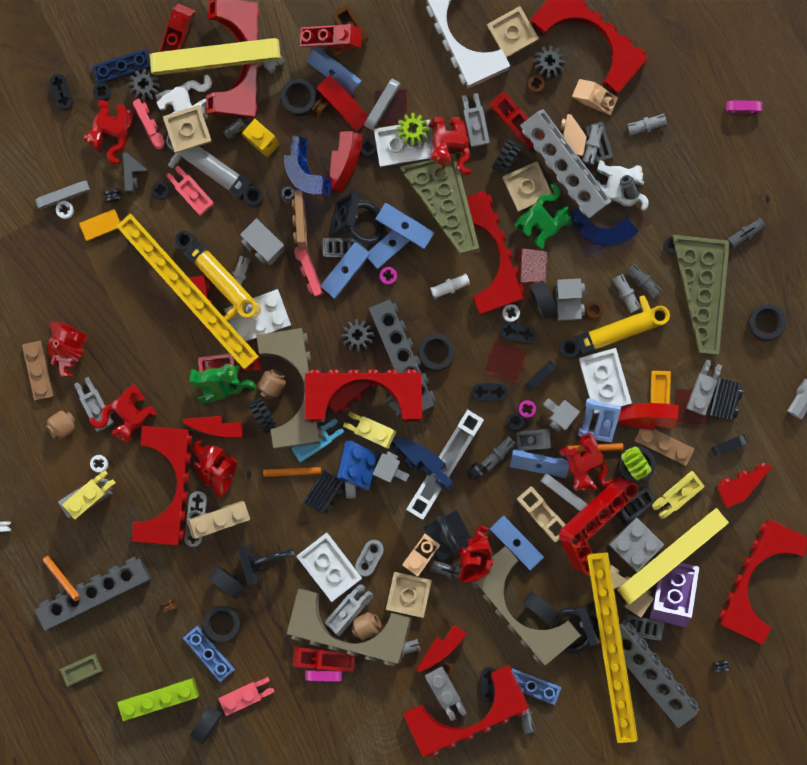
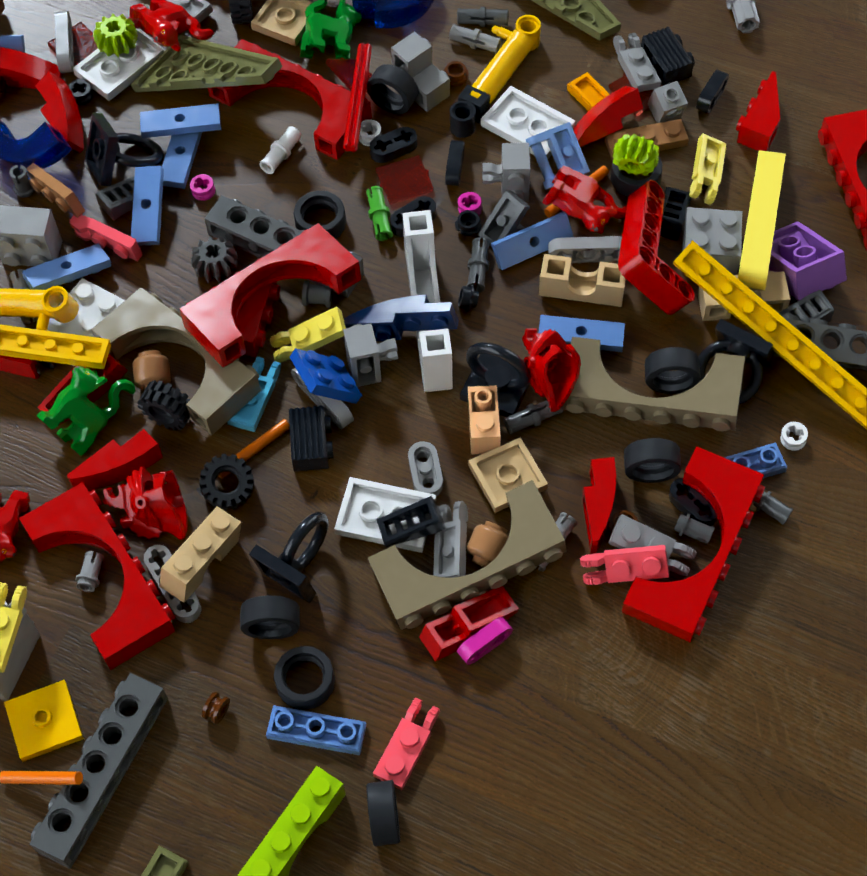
camera: 40 degrees left, 25 degrees down
(83, 544) = (43, 720): none -> yellow plate
(158, 481) = (88, 577): none -> light grey pin
(259, 496) = (226, 464): none -> black tyre
(284, 279) = (67, 268): none -> medium blue tile
(350, 592) = (414, 531): none -> black slope
(423, 693) = (626, 564): none -> coral hinge
(471, 375) = (379, 213): none -> bright green pin
(476, 699) = (694, 529): none -> dark grey pin
(484, 650) = (652, 460): none -> black tyre
(516, 292) = (357, 97): none -> red axle
(569, 693) = (789, 442): none -> white bush
(693, 434) = (667, 102): none -> light grey brick

